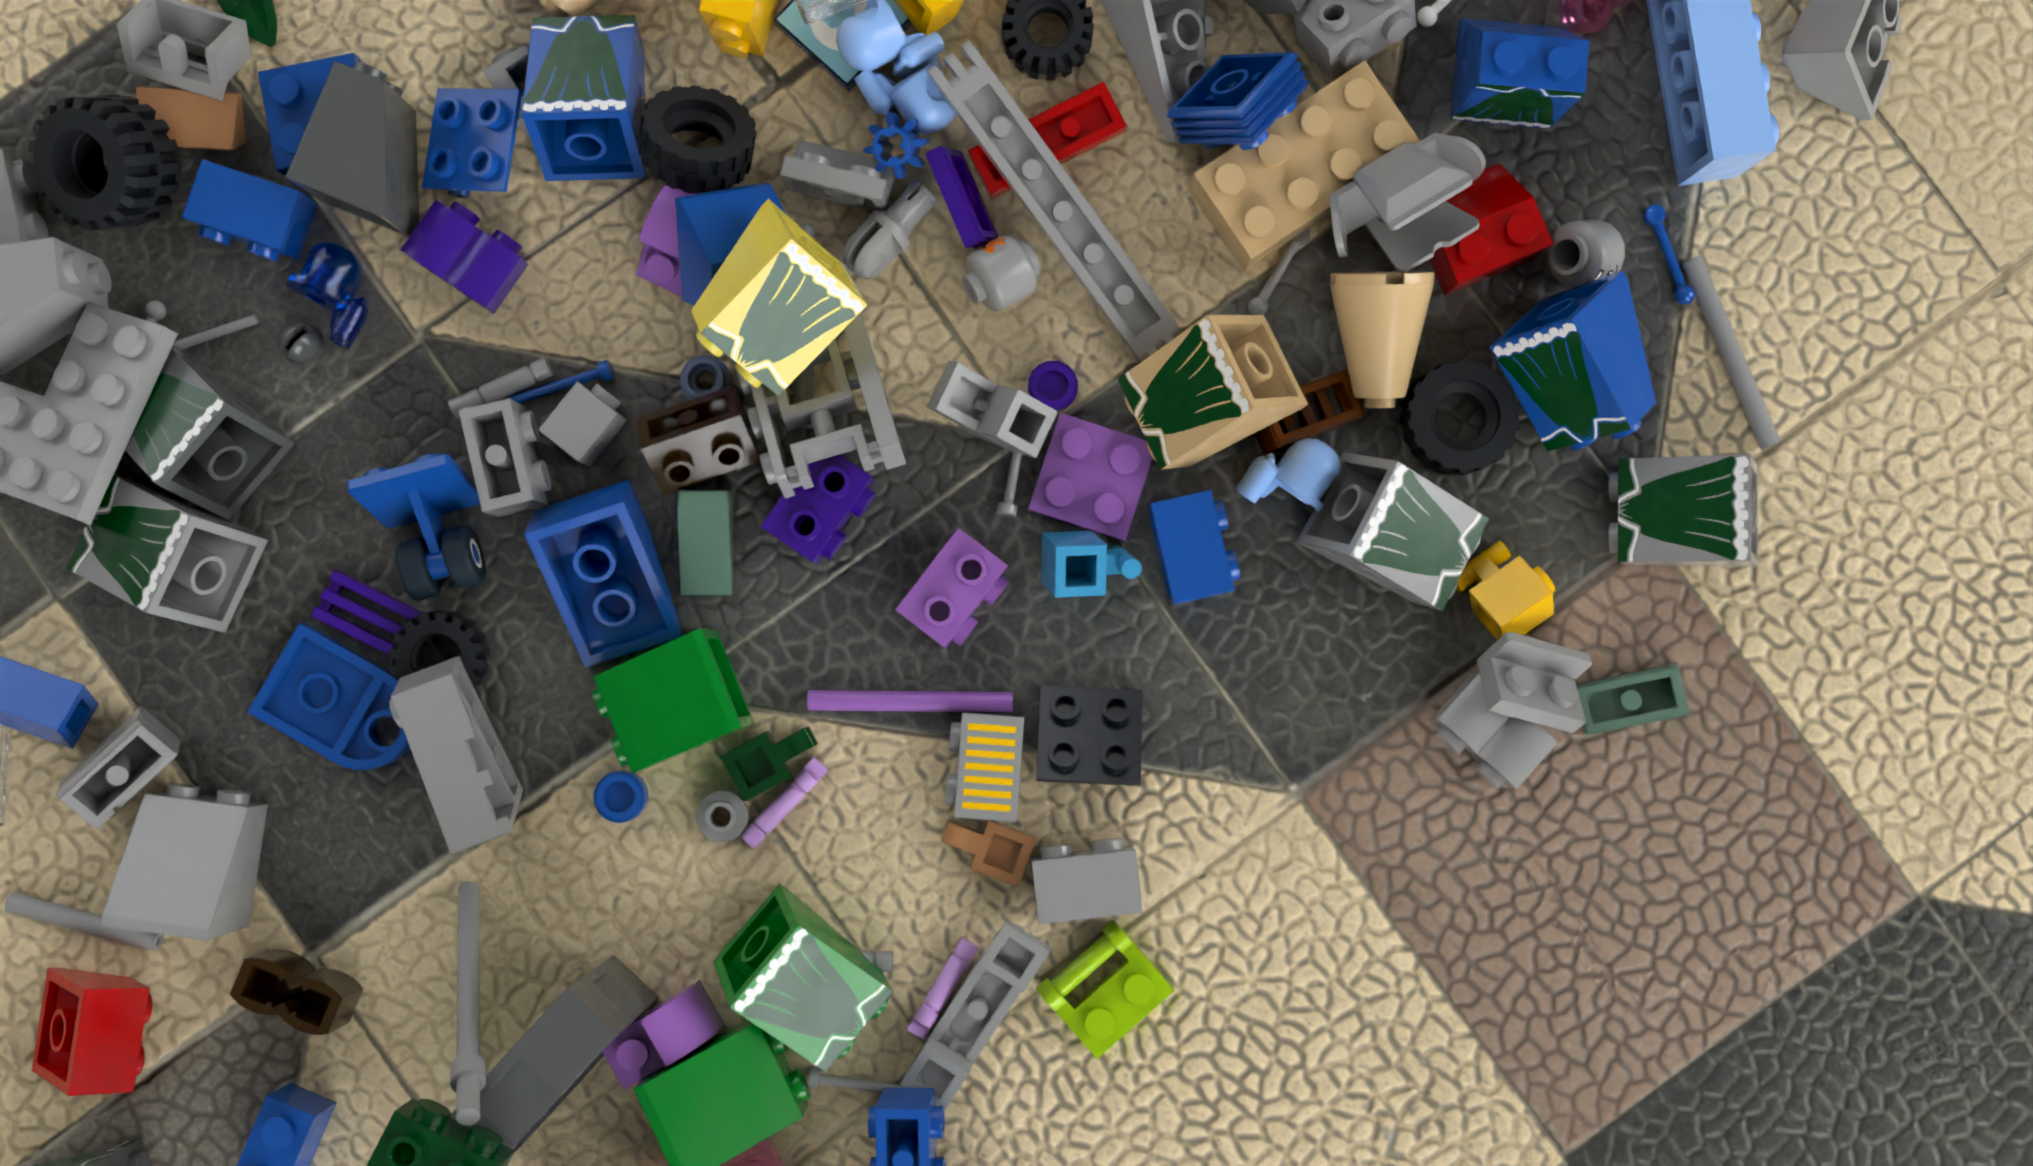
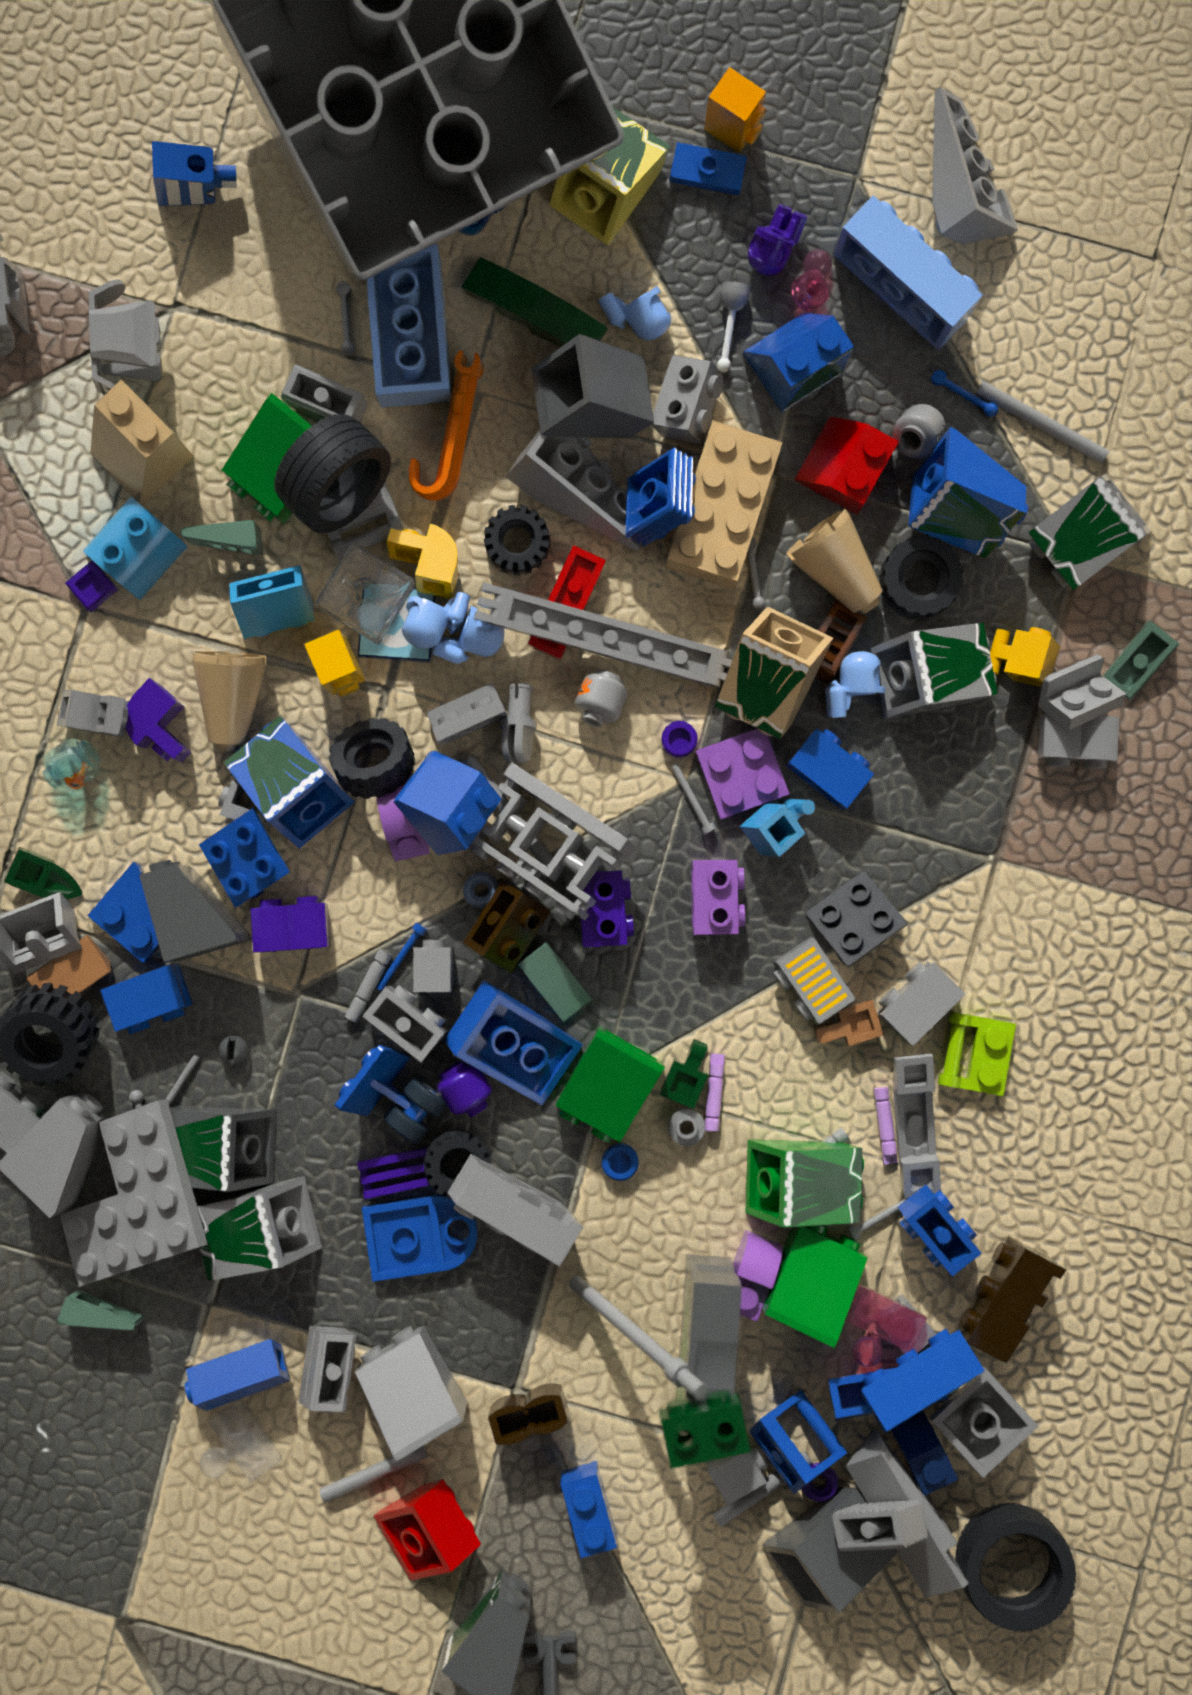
camera: 35 degrees left, 0 degrees up
(331, 281) = (225, 1001): clear blue piece -> none
(511, 581) = (464, 1089): none -> dark purple head
(775, 301) = (497, 814): slope -> none
(882, 147) = (478, 681): blue gear -> none
(909, 701) = (740, 979): medium lavender bar -> none
(962, 196) = (545, 672): dark purple tile -> none
(991, 410) = (659, 779): light grey brick -> none
(1410, 197) = (801, 476): light grey piece -> none

